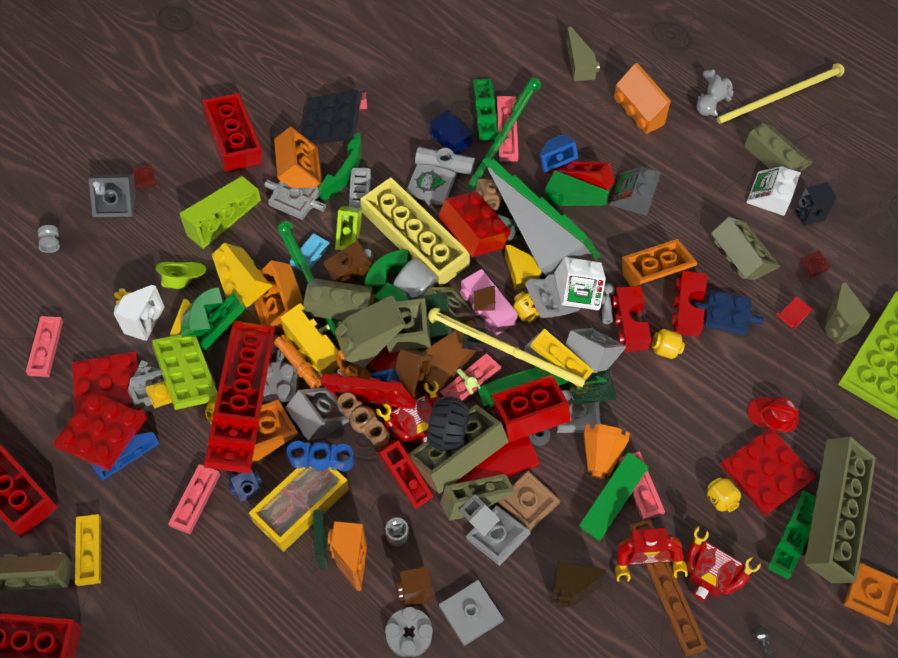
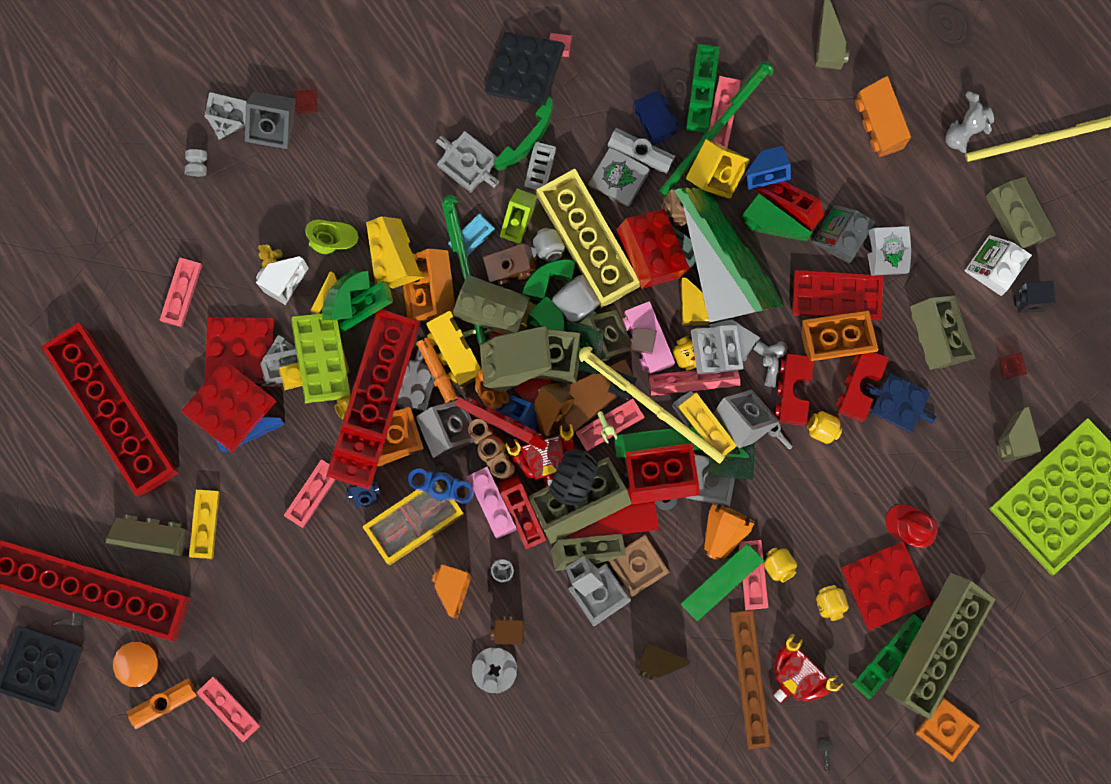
camera: 15 degrees right, 20 degrees up
(72, 198) = (225, 114): none -> light grey slope
(219, 211) = (384, 166): lime wedge -> none
(232, 132) = (410, 64): red brick -> none
(297, 160) = (477, 120): orange slope -> none
(320, 539) = (427, 565): clear green tile -> none
(375, 471) = (491, 503): none -> bright pink brick
(380, 243) = (548, 244): none -> light grey head
(471, 613) = (556, 664): light grey plate -> none
(516, 156) = (717, 169): none -> yellow slope
(529, 331) = (691, 381): none -> coral plate
(580, 283) = (749, 344): white slope -> none
(626, 359) = (779, 435): none -> light grey hand
(637, 235) = (836, 294): none -> red plate
(649, 547) = (740, 643): red torso -> none
(664, 470) = (780, 564): none -> yellow head
(680, 194) = (890, 251): none -> light grey slope
(794, 313) = (968, 421): red bracket -> none

